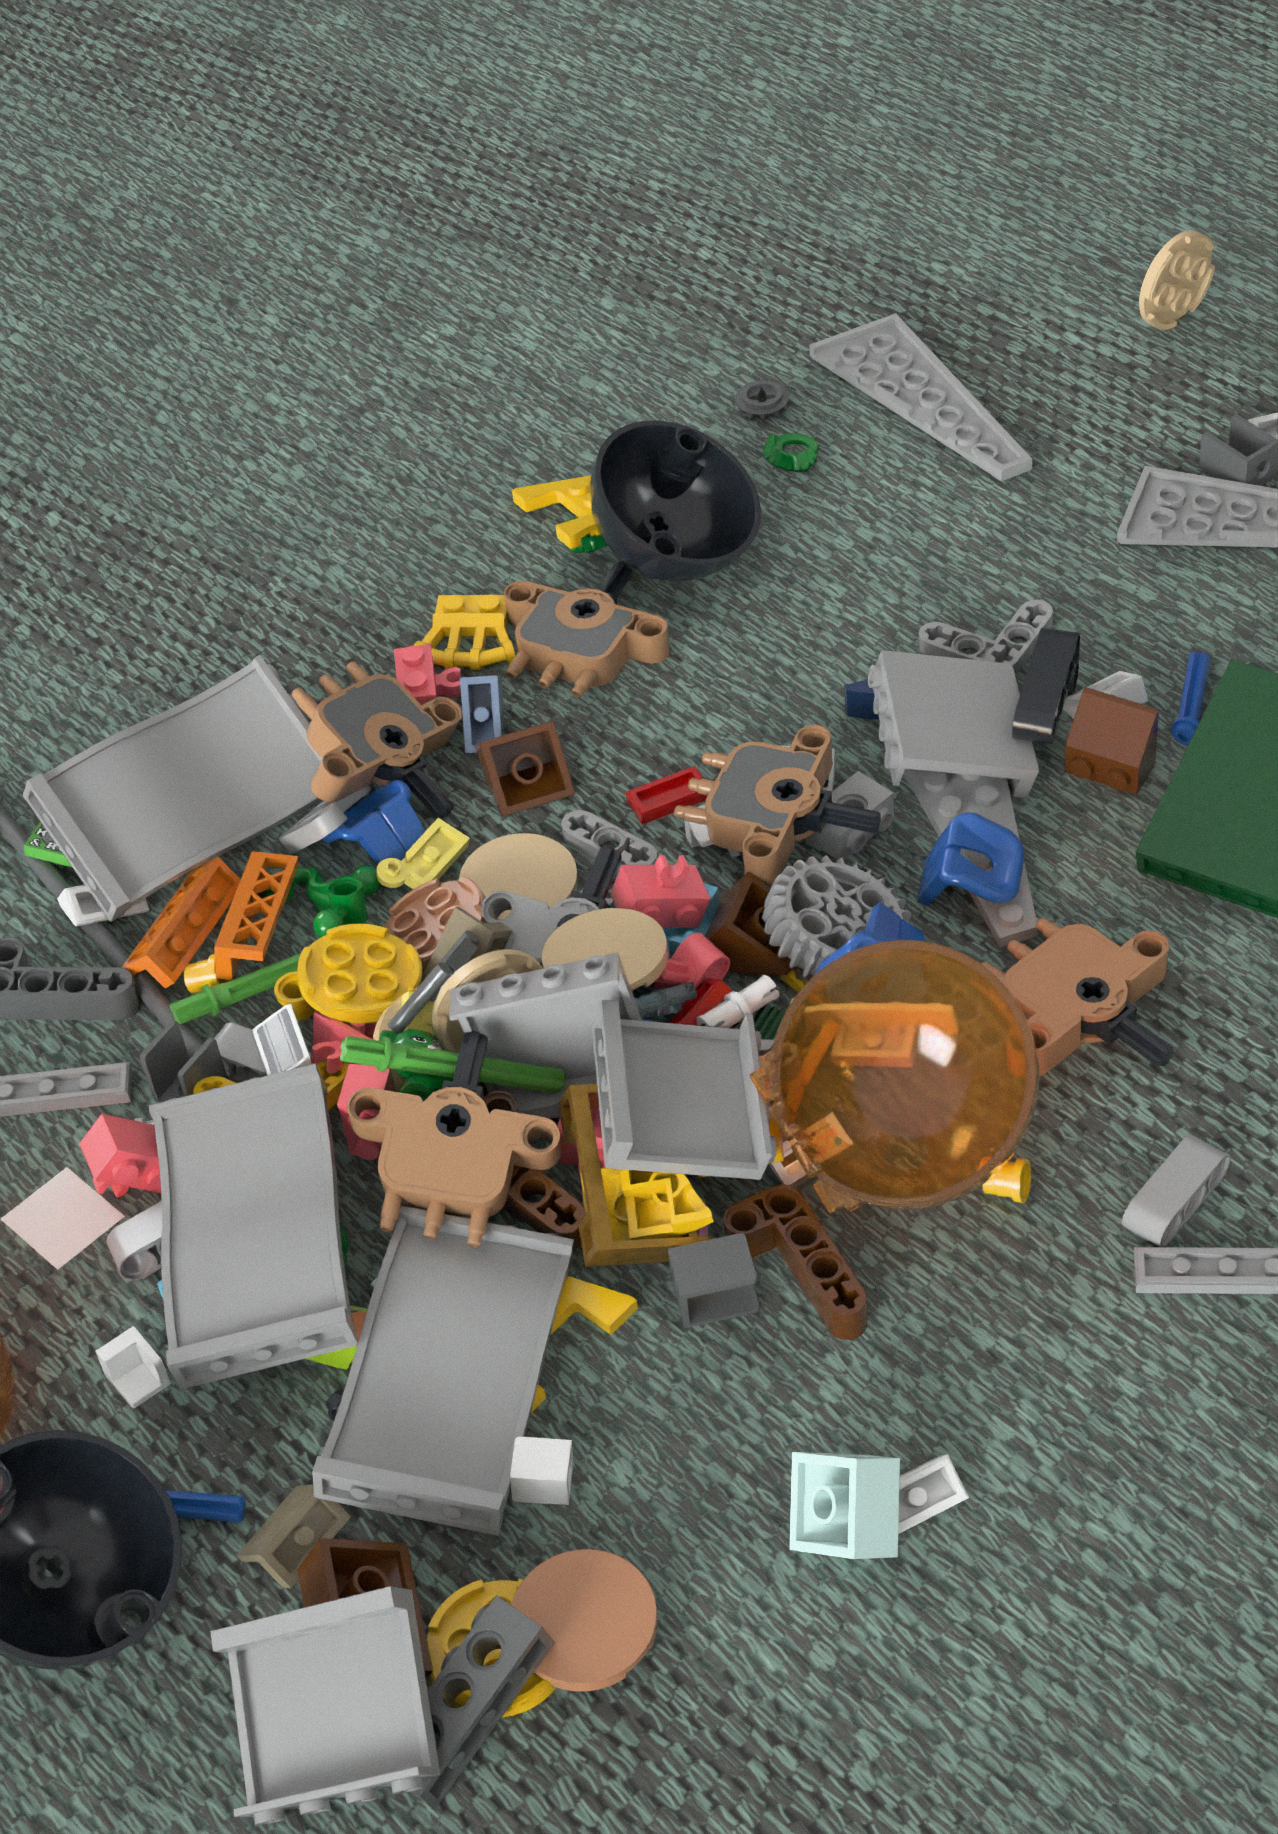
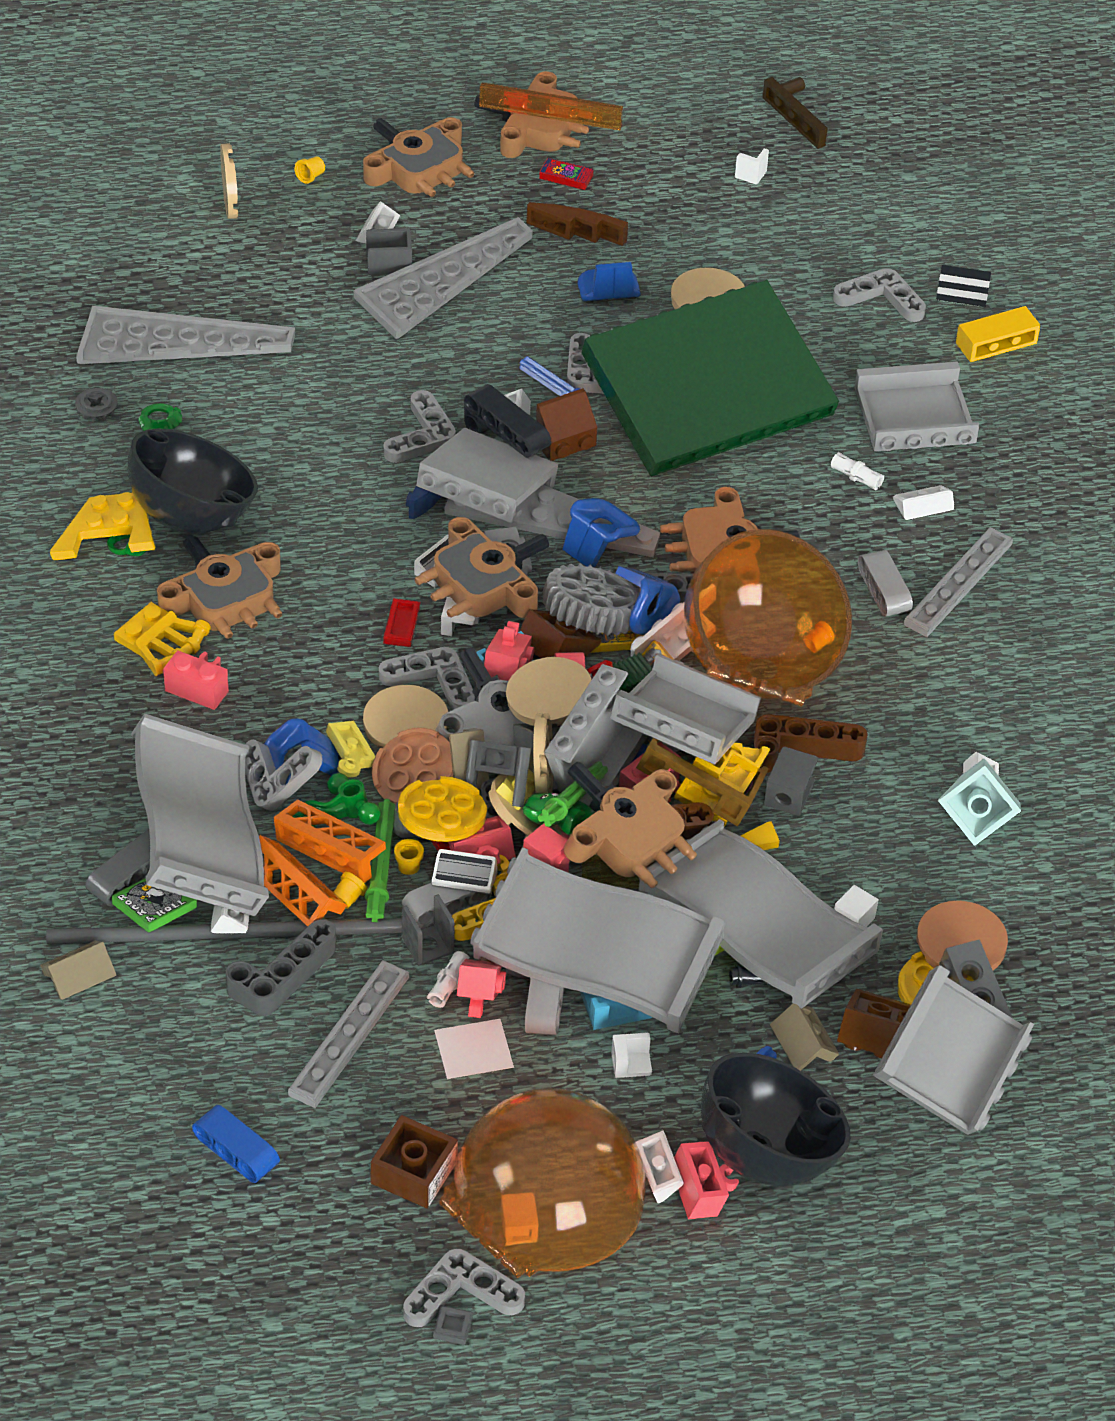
camera: 65 degrees left, 0 degrees up
(376, 736) = (239, 711): piece -> none
(481, 709) = (250, 662): sand blue slope -> none
(525, 768) = (318, 667): reddish brown slope -> none
(739, 1003) = (622, 661): white pin -> none

